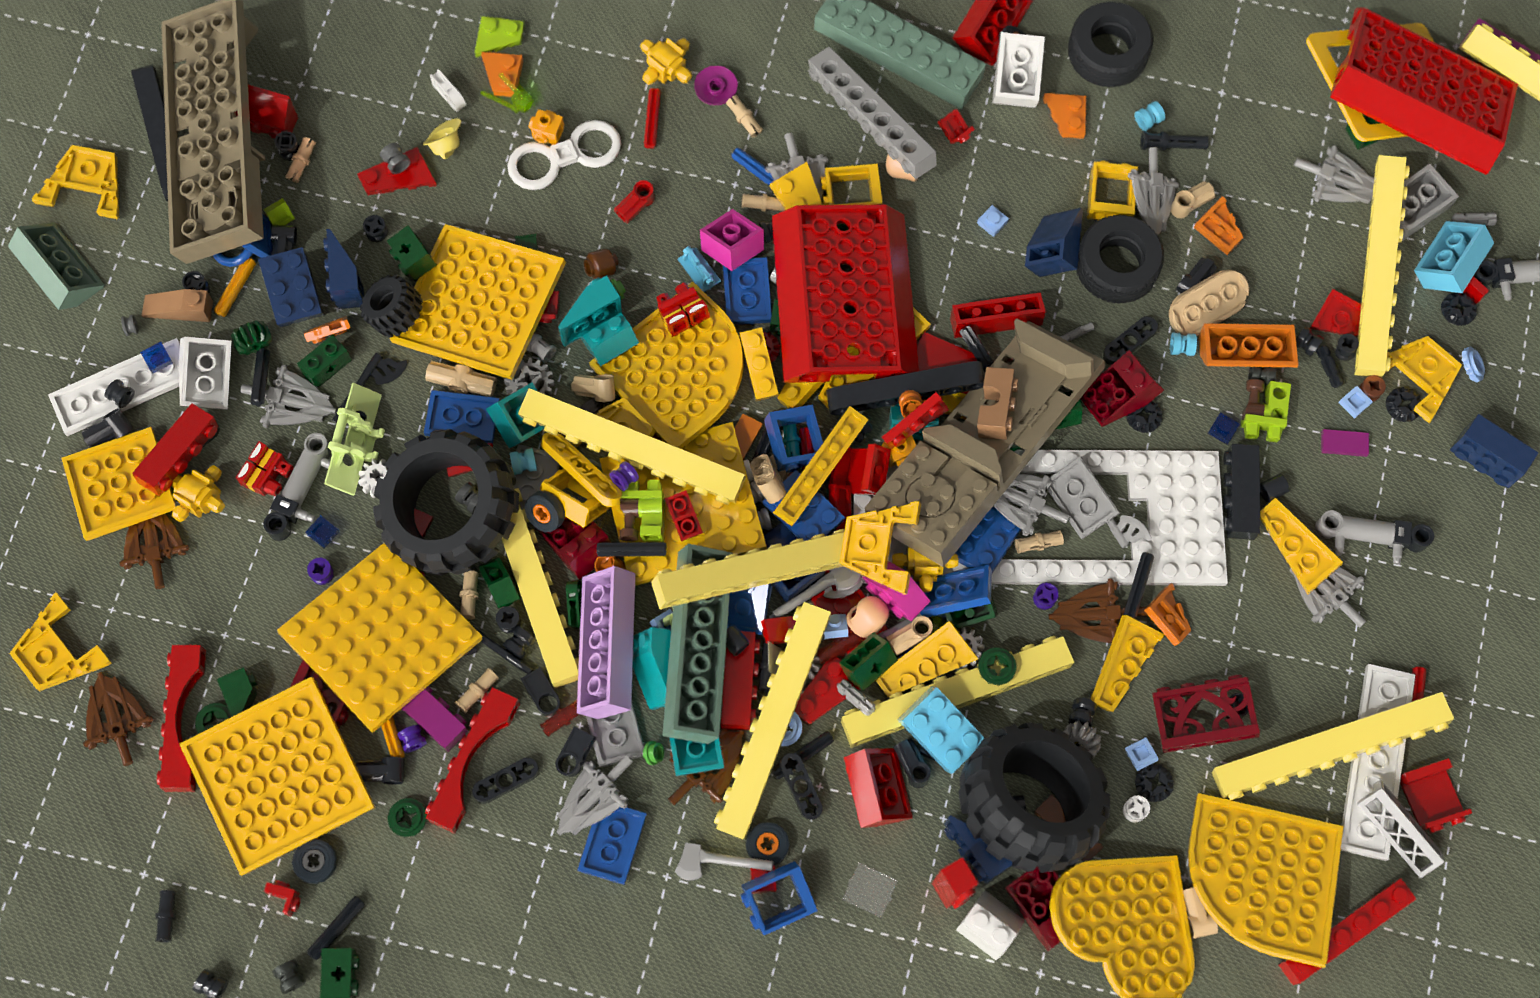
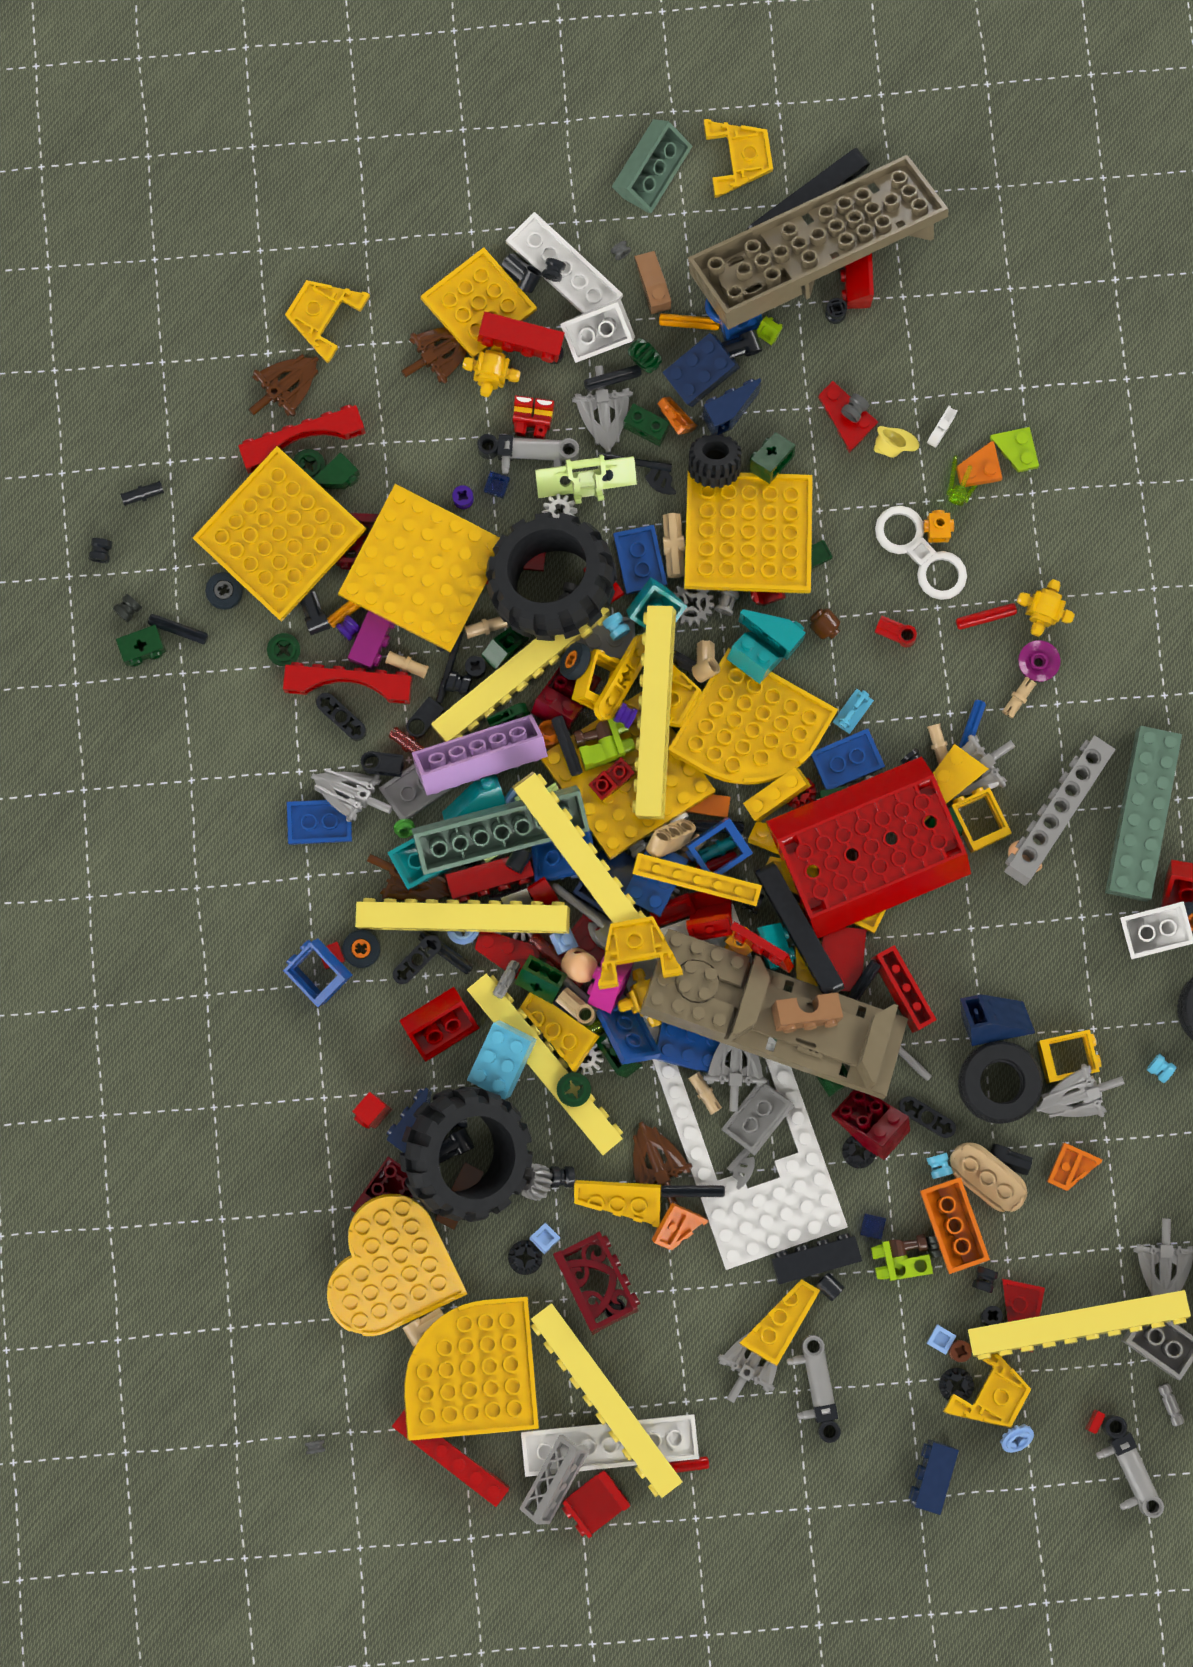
camera: 75 degrees right, 10 degrees up
(156, 357) = (596, 286): clear blue plate -> none
(193, 280) = (675, 285): black wheel -> none
(282, 890) = (191, 575): red bracket -> none
(300, 159) = (827, 327): light nougat pin -> none
(373, 223) = (786, 412): black wheel -> none
(619, 288) = (805, 645): bright green plate -> none
(682, 308) = (799, 700): red hips -> none
(693, 855) = (330, 892): light grey piece -> none
(732, 239) = (887, 729): dark pink brick -> none
(869, 890) = (353, 1046): clear piece -> none
(907, 397) = (781, 937): orange wheel -> none
(912, 761) = (470, 1044): black piece -> none
(955, 127) = (1080, 892): red bracket -> none
(990, 925) = (355, 1154): white slope -> none
(992, 221) = (1000, 956): light blue plate -> none
(1048, 592) = (657, 1113): dark purple wheel -> none
(1068, 113) = (1136, 992): orange wing -> none
(1140, 806) = (496, 1248): white wheel -> none
(1161, 139) = (1141, 1088): black pin -> none
(1192, 199) = (1091, 1134): tan piece -> none
(1330, 366) = (968, 1307): black axle -> none
(1344, 442) = (898, 1340): magenta tile -> none
(1454, 256) = (1117, 1392): medium azure brick -> none
(1454, 315) = (1062, 1410): black gear -> none

